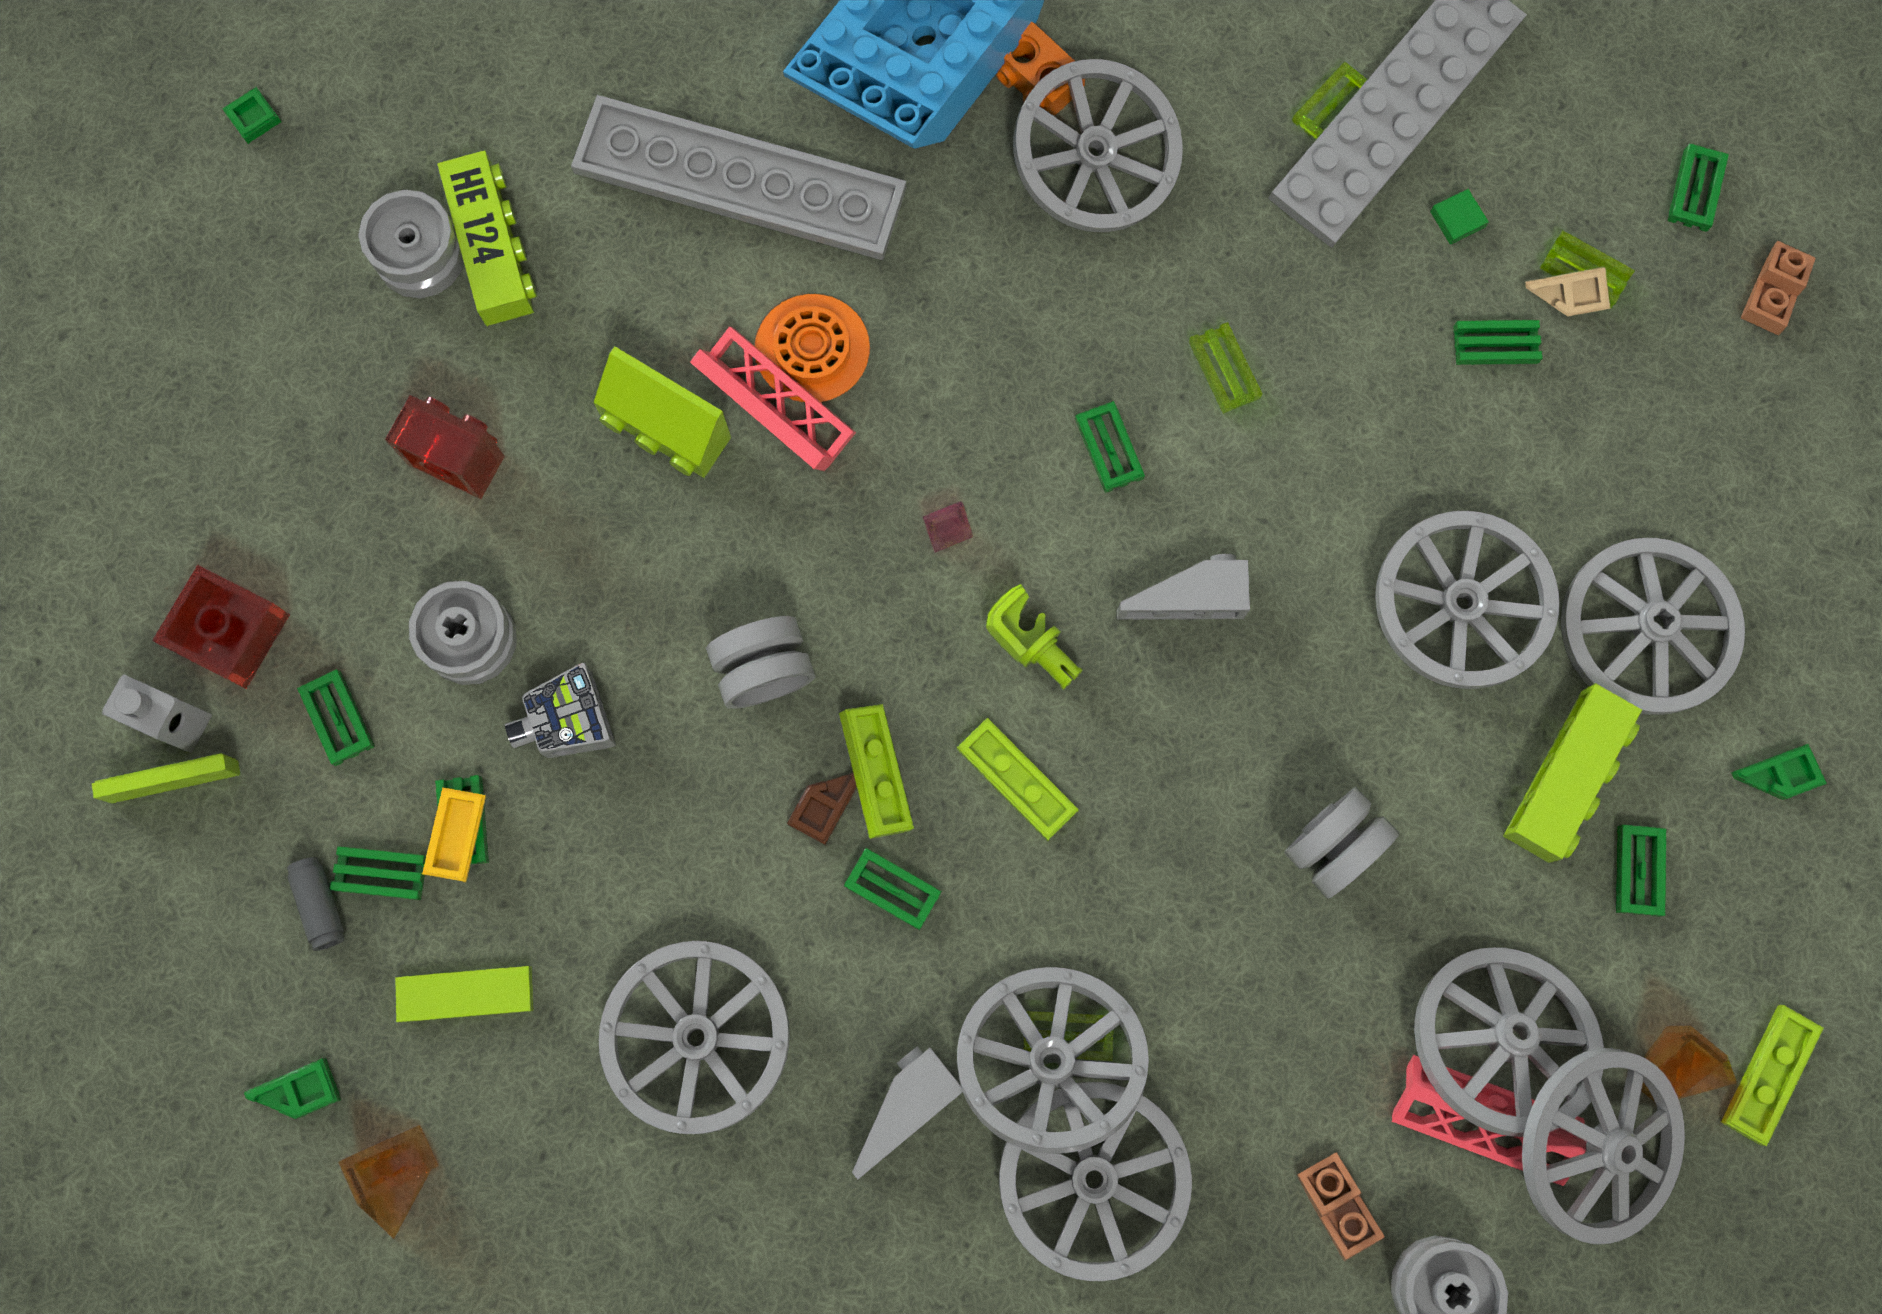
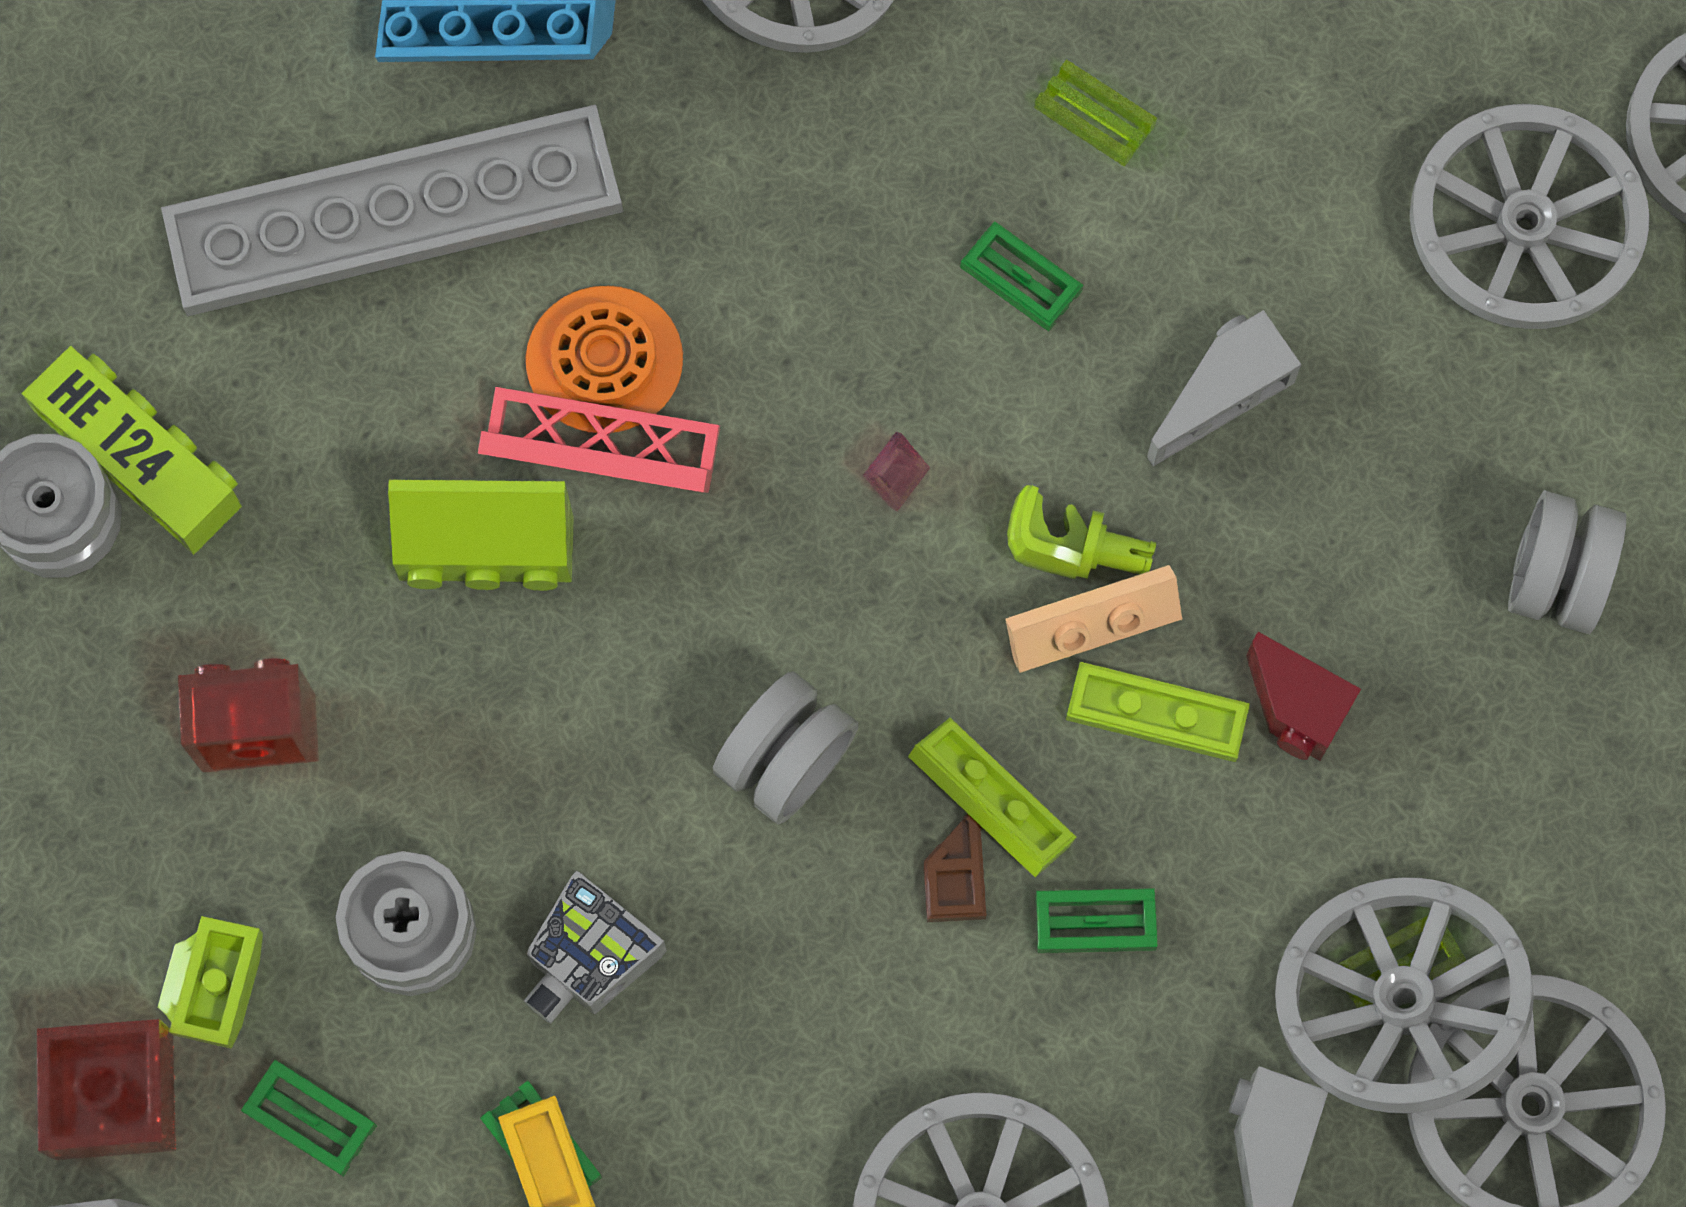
camera: 30 degrees left, 5 degrees down
(329, 600) = (211, 981): none -> lime slope
(1013, 695) = (1094, 618): none -> light nougat plate
(1111, 826) = (1298, 698): none -> dark red slope

